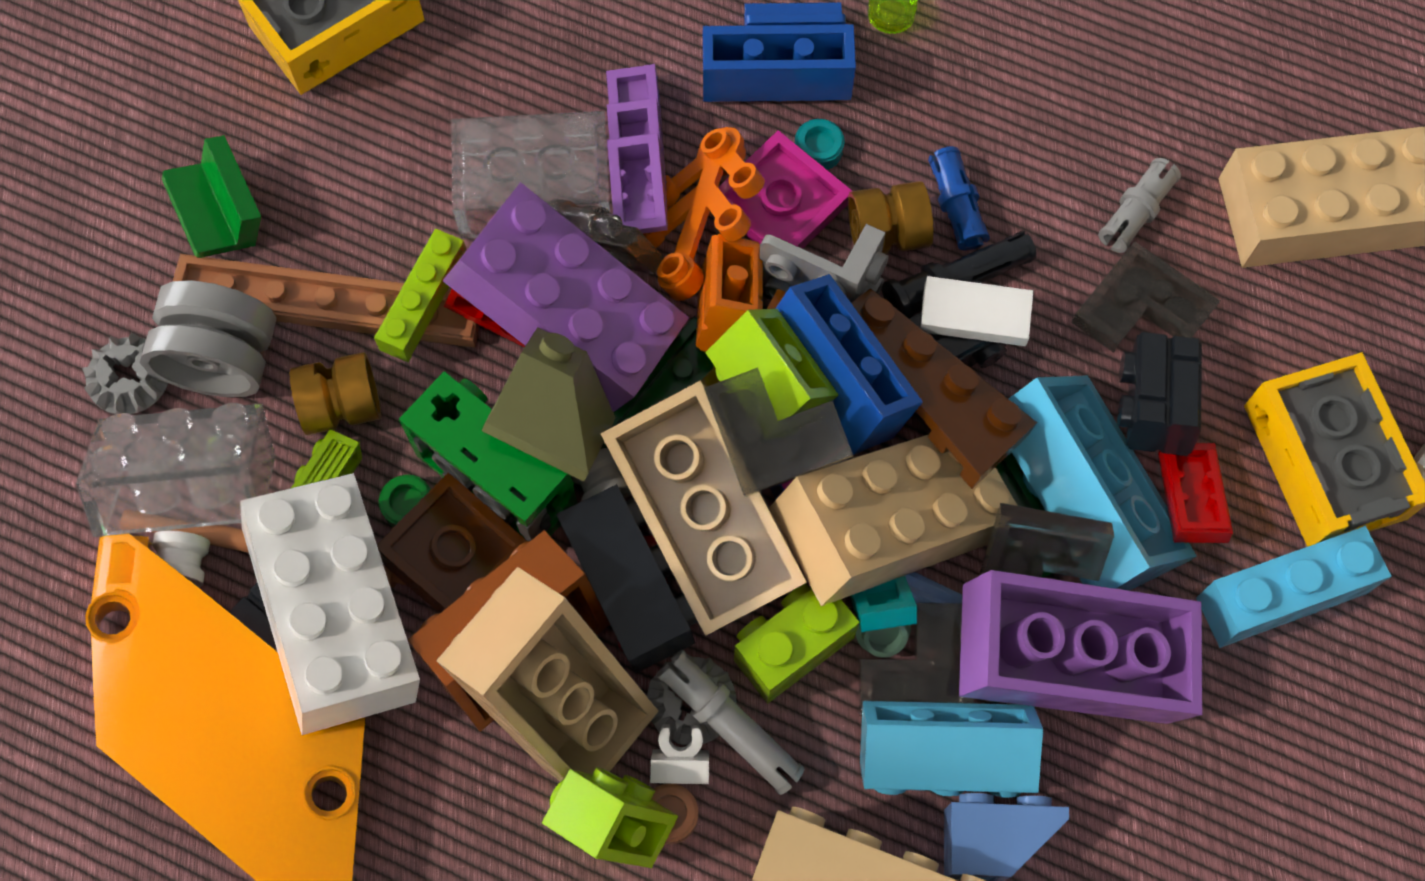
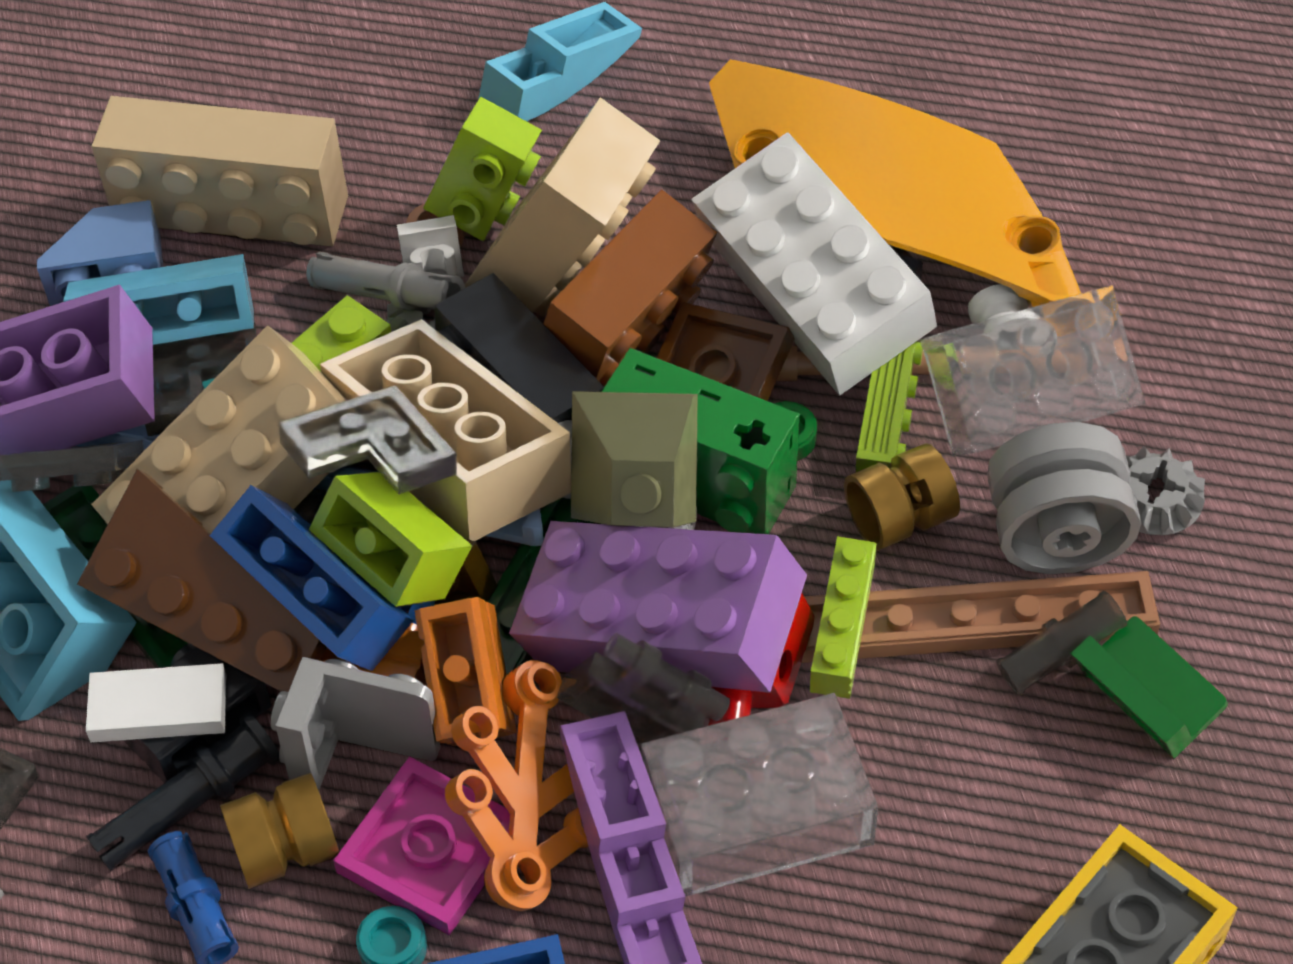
camera: 170 degrees right, 15 degrees down
(262, 245) = (1058, 640): none -> clear smoke pin

